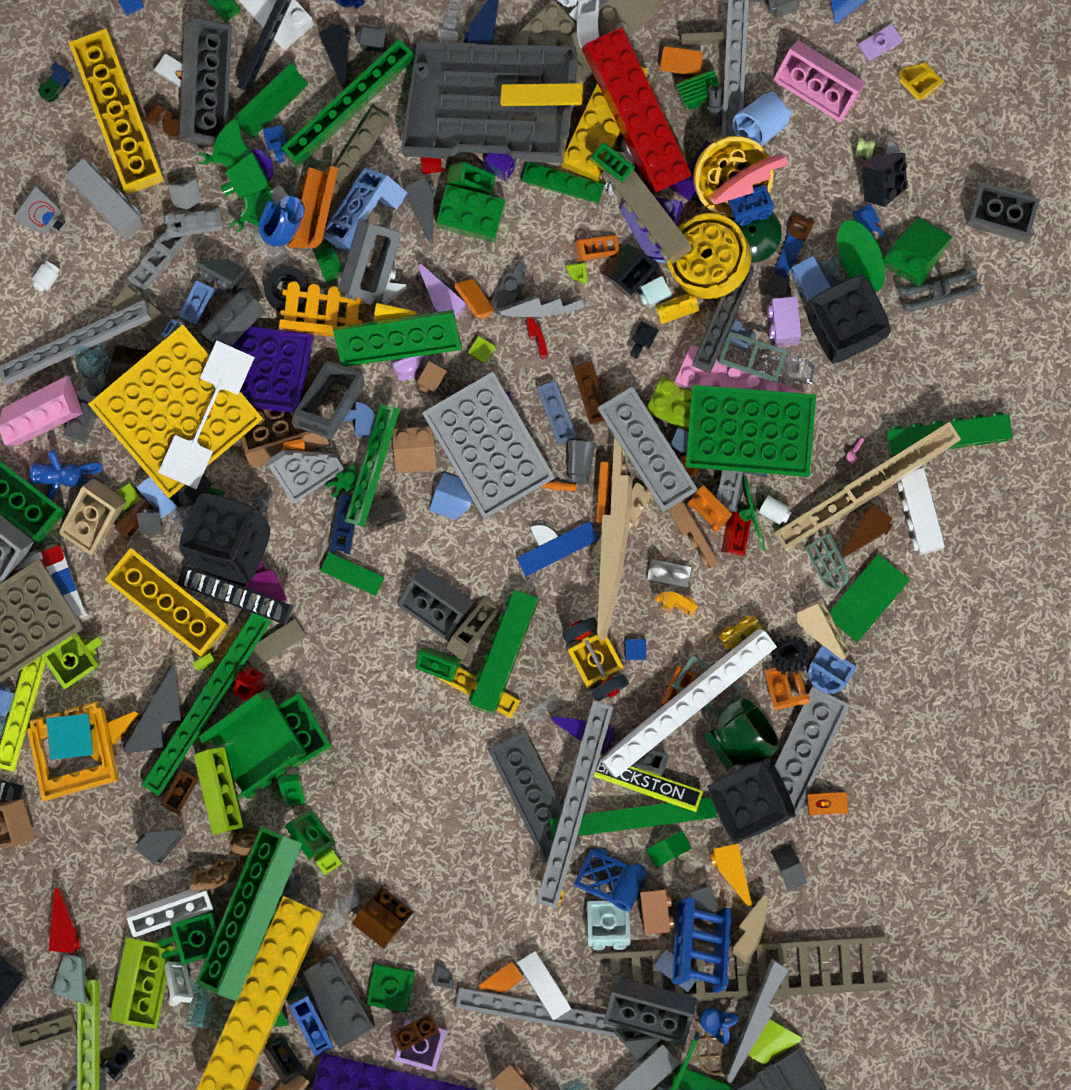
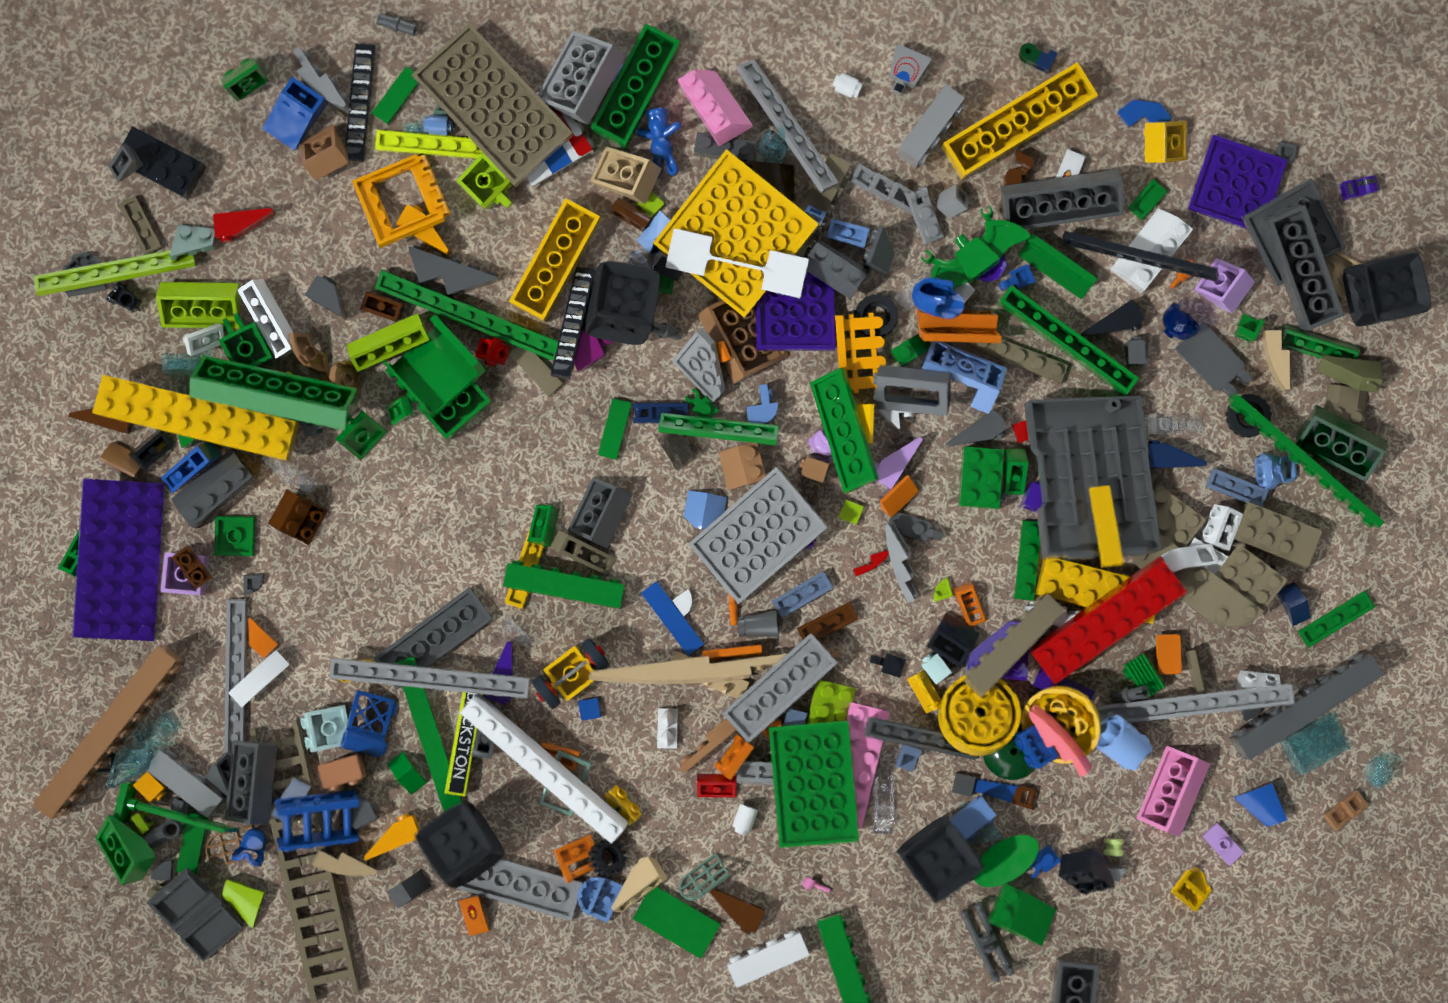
camera: 75 degrees right, 5 degrees up
(69, 736) = (412, 194): teal slope -> none
(150, 522) = (628, 229): dark grey slope -> none
(204, 662) = (506, 306): lime tile -> none
(327, 860) = (341, 456): lime tile -> none
(330, 374) = (799, 371): dark grey piece -> none
(608, 168) = (1063, 593): green slope -> none
(673, 599) = (639, 735): light orange slope -> none
(742, 735) = (522, 825): dark green plate -> none
(748, 369) = (873, 771): sand green window -> none
(752, 513) = (736, 799): green shield -> none
(757, 1017) = (261, 884): light grey slope -> none
(785, 321) = (928, 797): lavender brick -> none
(868, 486) = (781, 905): tan slope -> none

